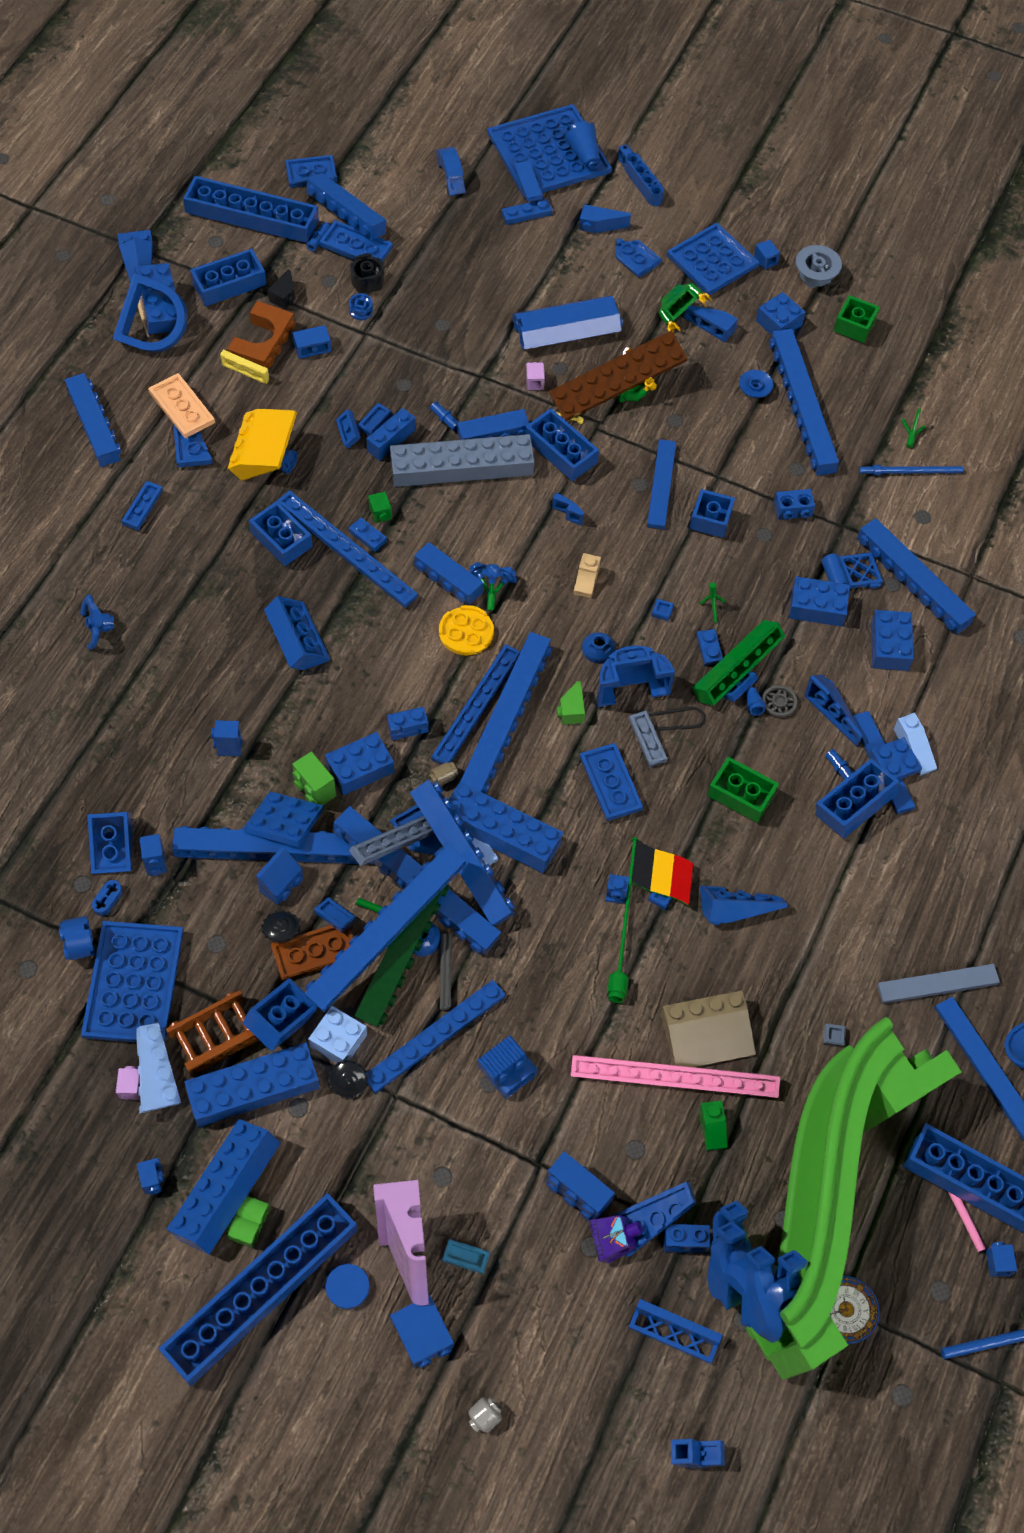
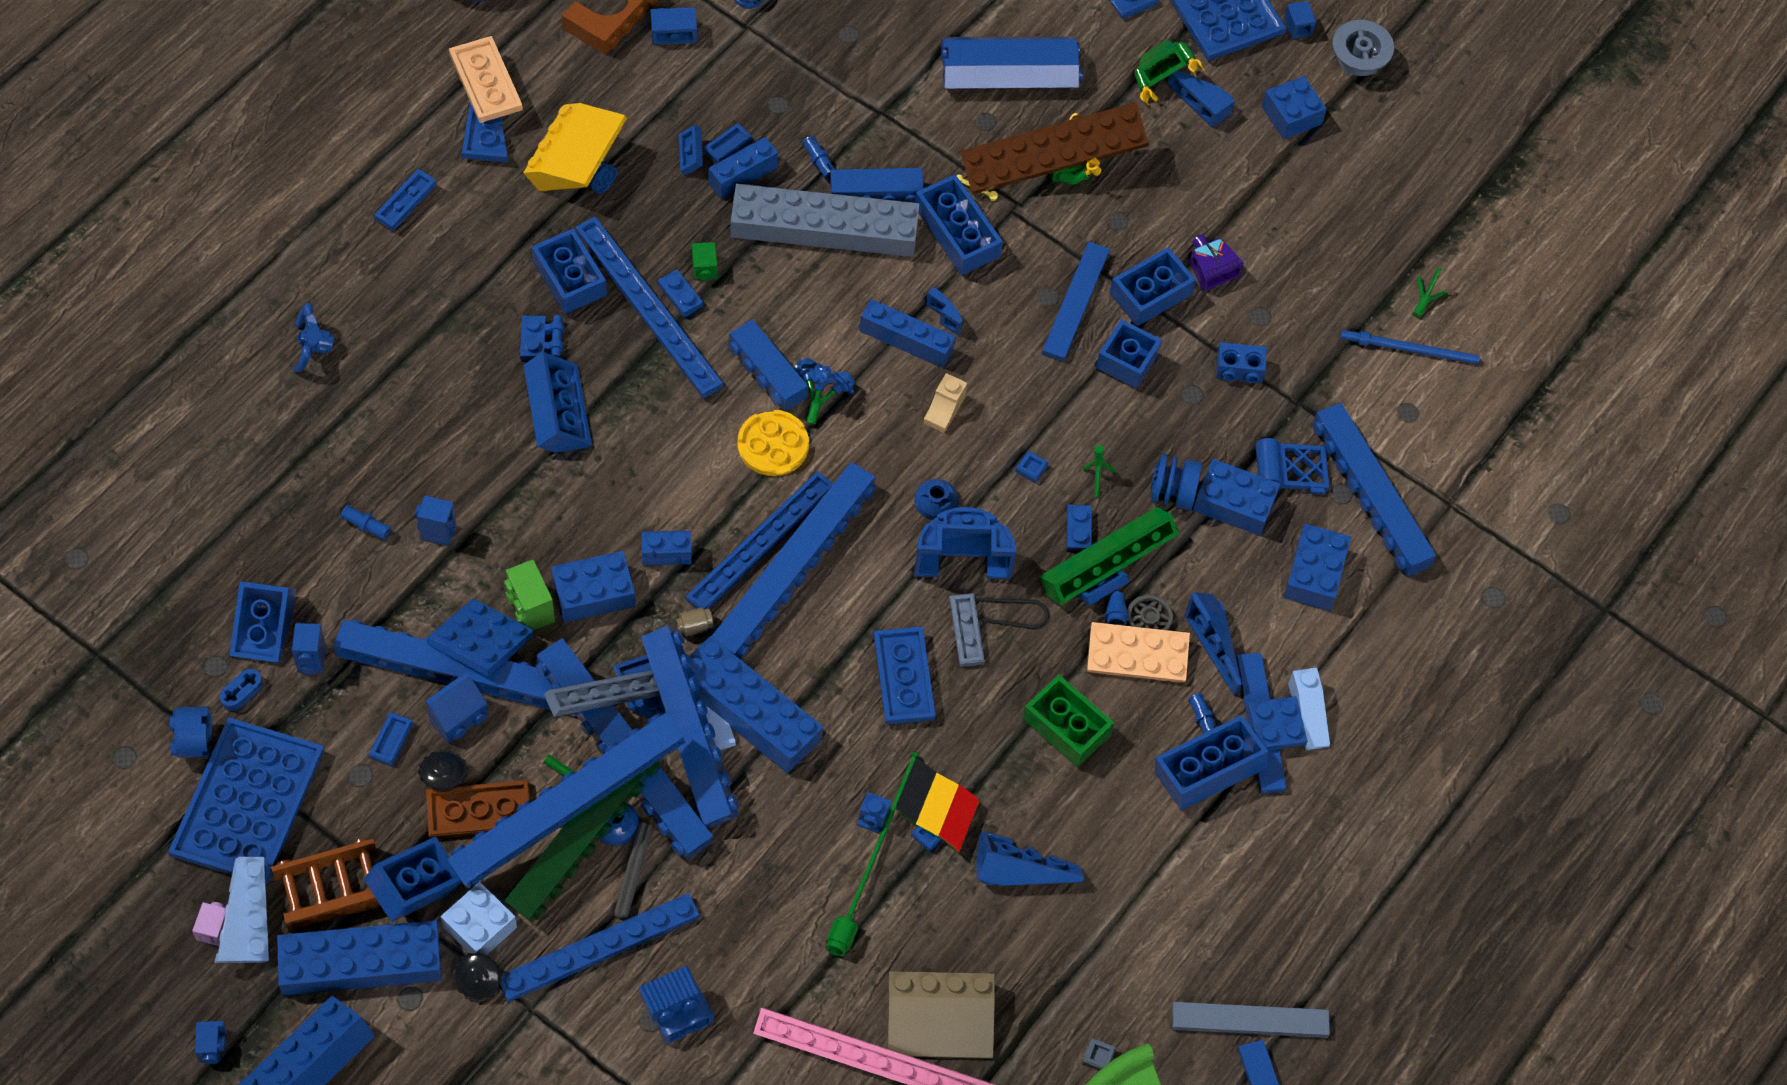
camera: 10 degrees right, 0 degrees up
(92, 419) = (370, 75): blue brick -> none
(172, 751) = (365, 522): none -> blue pin
(233, 911) = (391, 739): none -> blue tile
(244, 367) = (579, 42): light yellow tile -> none
(265, 588) = (533, 336): none -> blue plate
(335, 915) = (514, 770): blue tile -> none
(535, 376) = (949, 126): lavender brick -> none
(545, 530) = (907, 333): none -> blue brick
(572, 706) = (880, 568): bright green slope -> none
(715, 461) = (1152, 286): none -> blue brick
(754, 436) = (1214, 262): none -> dark purple torso
(756, 383) = (1237, 185): blue dish -> none
(769, 598) = (1176, 482): none -> blue wheel
(779, 729) = (1138, 652): none -> light nougat plate
(804, 402) = (1292, 229): blue brick -> none
(856, 319) = (1393, 130): green brick -> none

